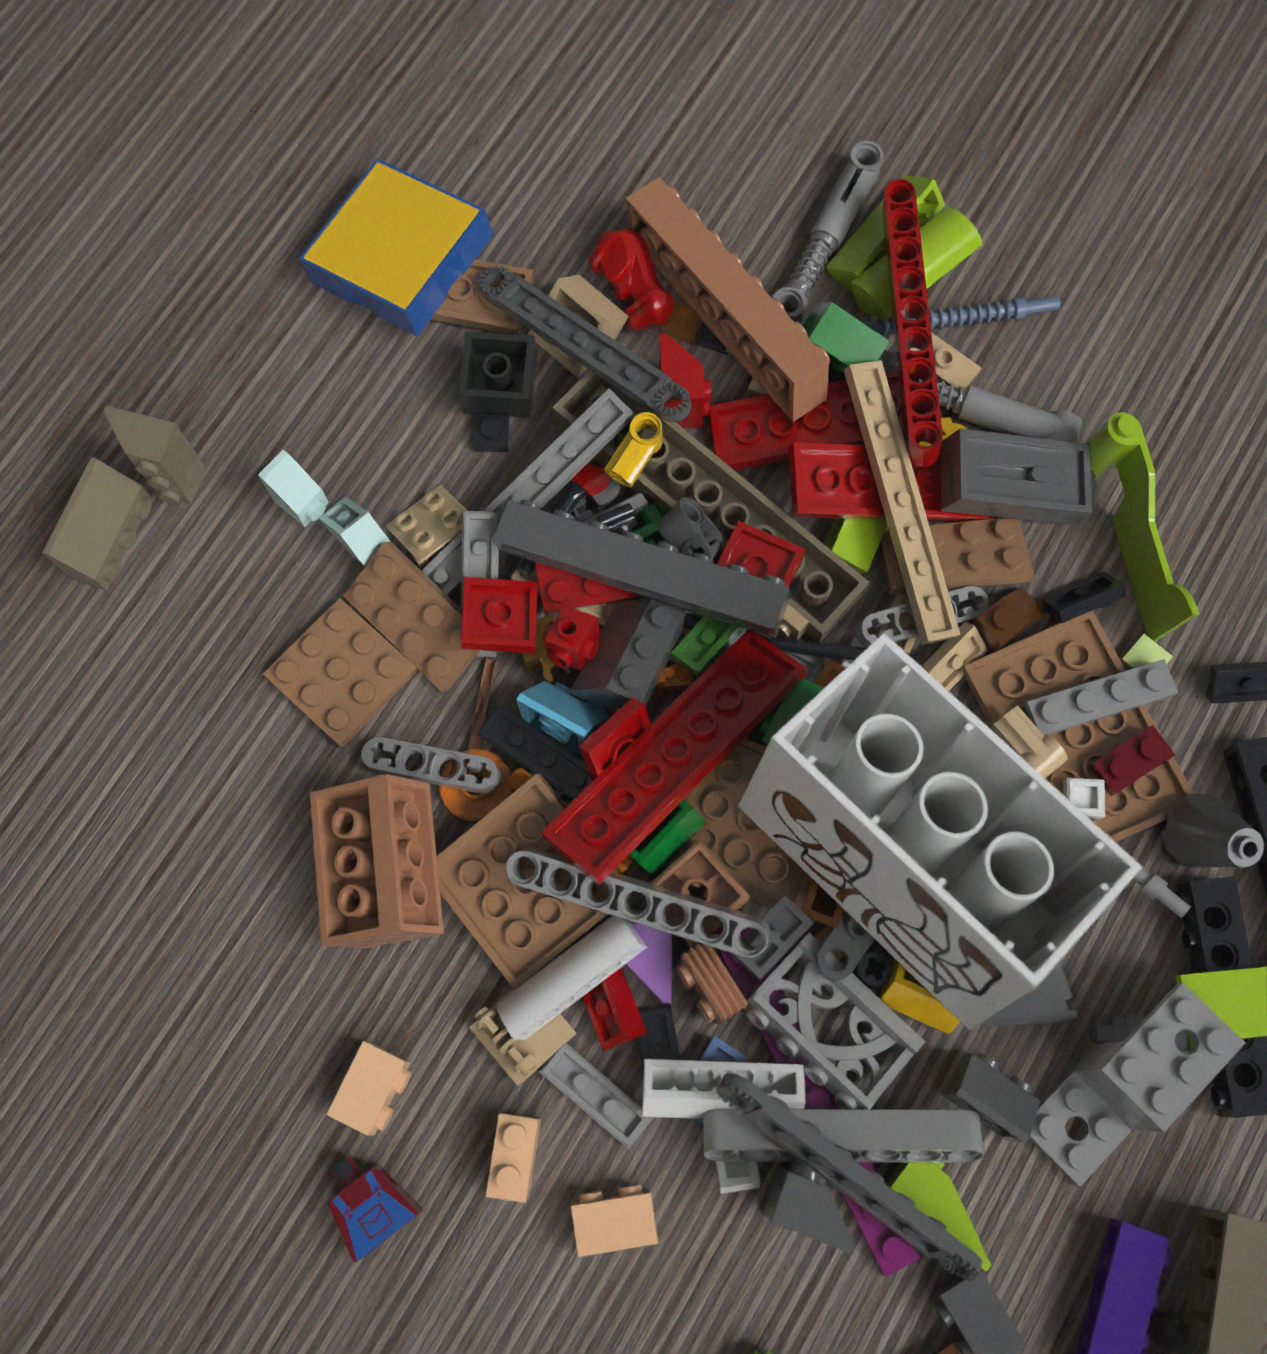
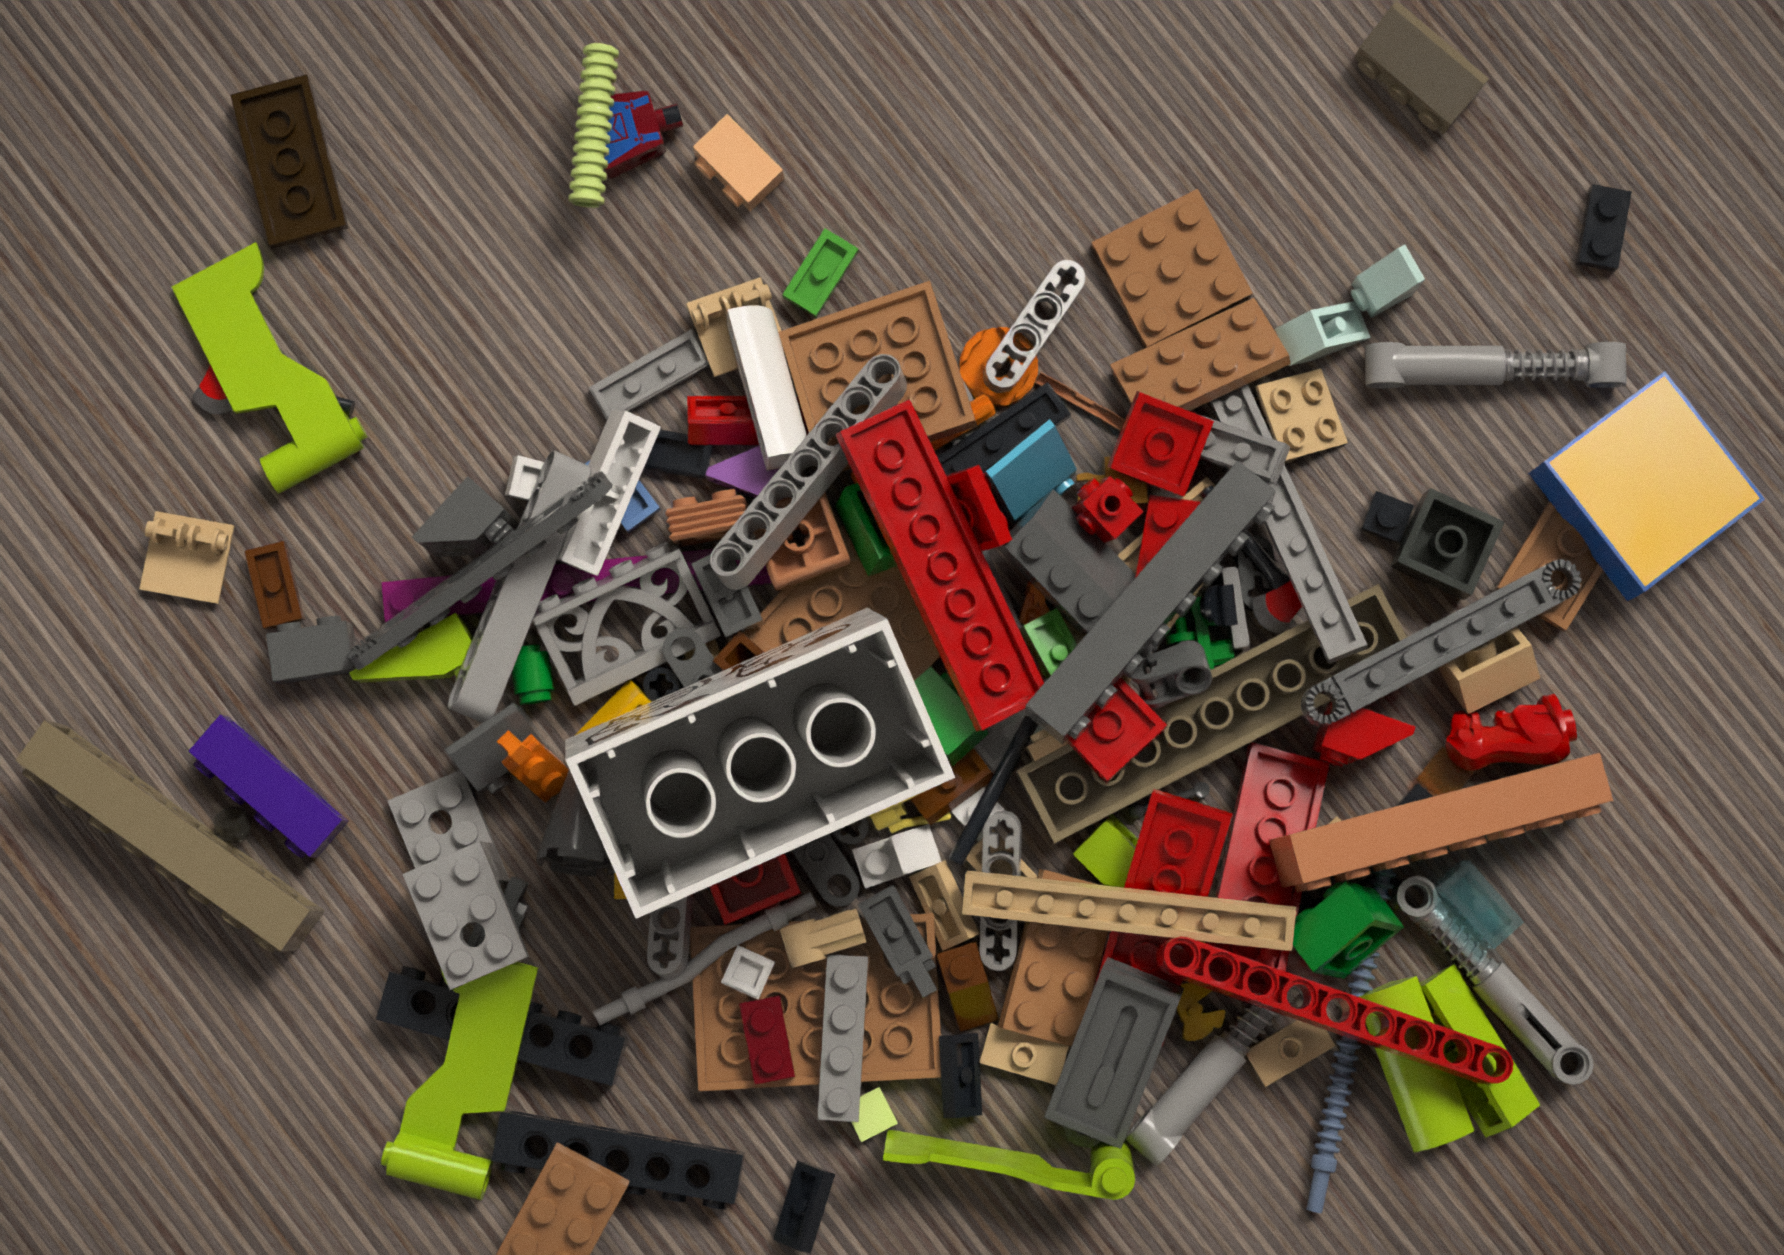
camera: 115 degrees right, 10 degrees up
(158, 453) = (1469, 146): dark tan slope -> none
(194, 352) = (1603, 227): none -> black plate
(338, 395) = (1401, 365): none -> light grey piece
(375, 862) = (947, 235): nougat brick -> none
(378, 1241) = (593, 125): none -> yellowish green piece
(446, 972) = (820, 273): none -> bright green plate
(513, 1157) = (622, 276): light nougat brick -> none
(614, 1221) = (528, 349): light nougat brick -> none
(634, 451) = (1286, 646): yellow piece -> none
(778, 255) = (1477, 905): none -> clear light blue brick
(913, 1092) = (532, 676): none -> green brick
(995, 1056) = (533, 765): none -> orange hinge
(1001, 680) = (900, 939): none -> dark grey hinge
(1044, 556) = (1023, 1054): none -> tan plate
(1210, 834) = (664, 1080): dark grey cone -> none

